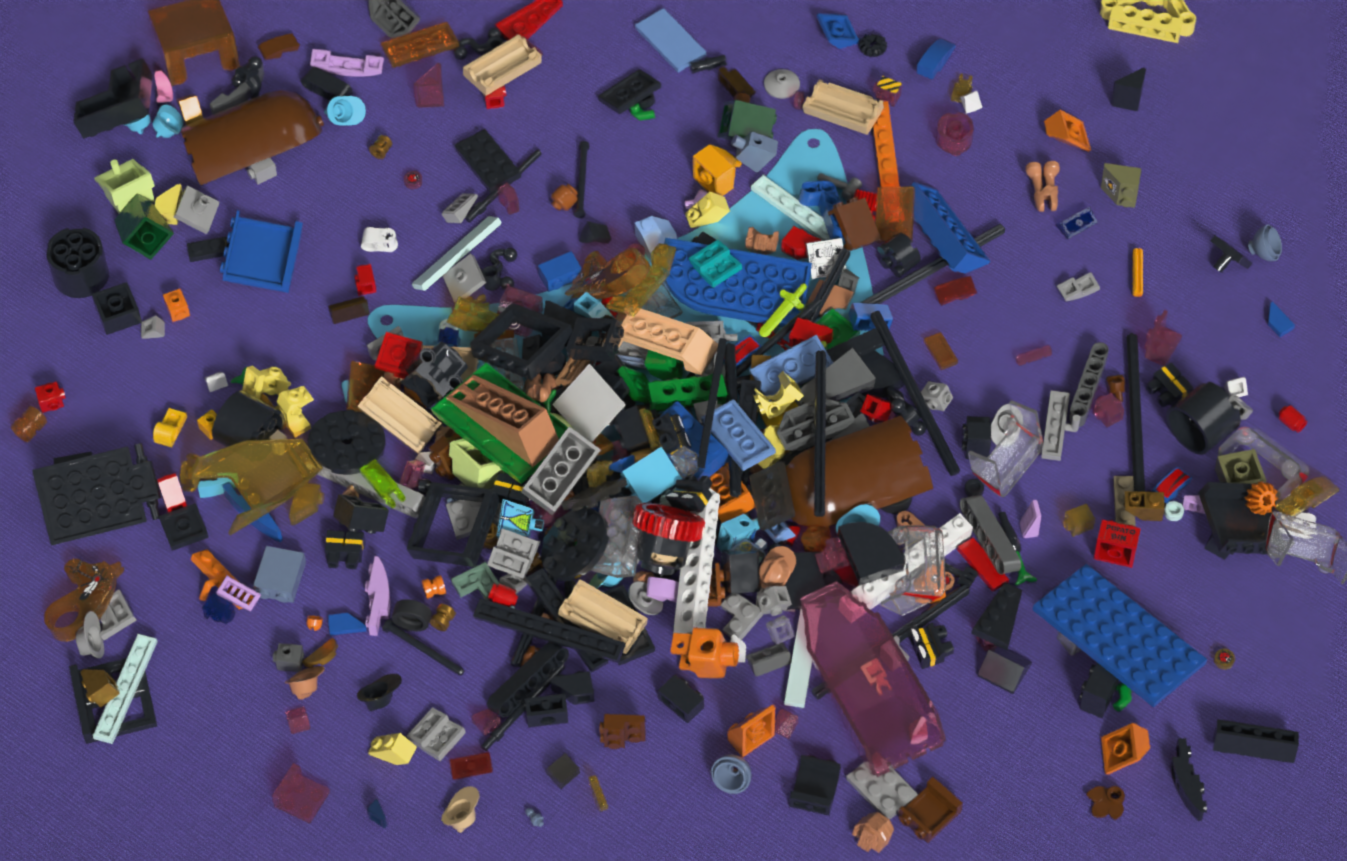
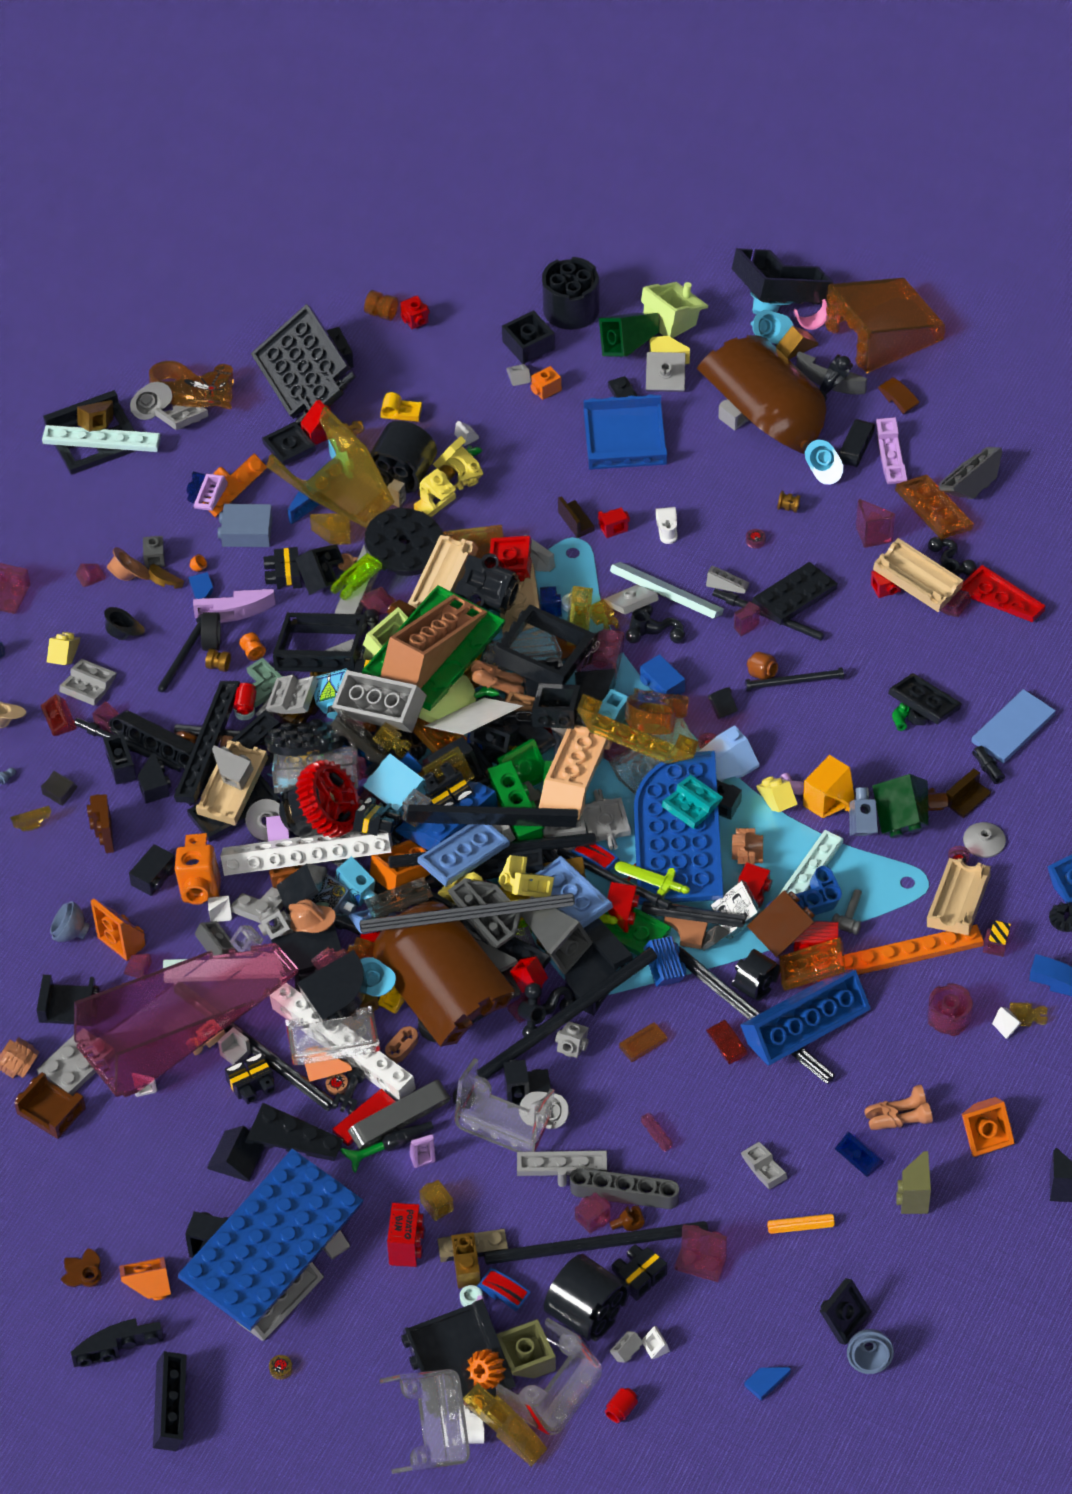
camera: 80 degrees right, 5 degrees down
(598, 607) = (233, 769): none -> light grey slope

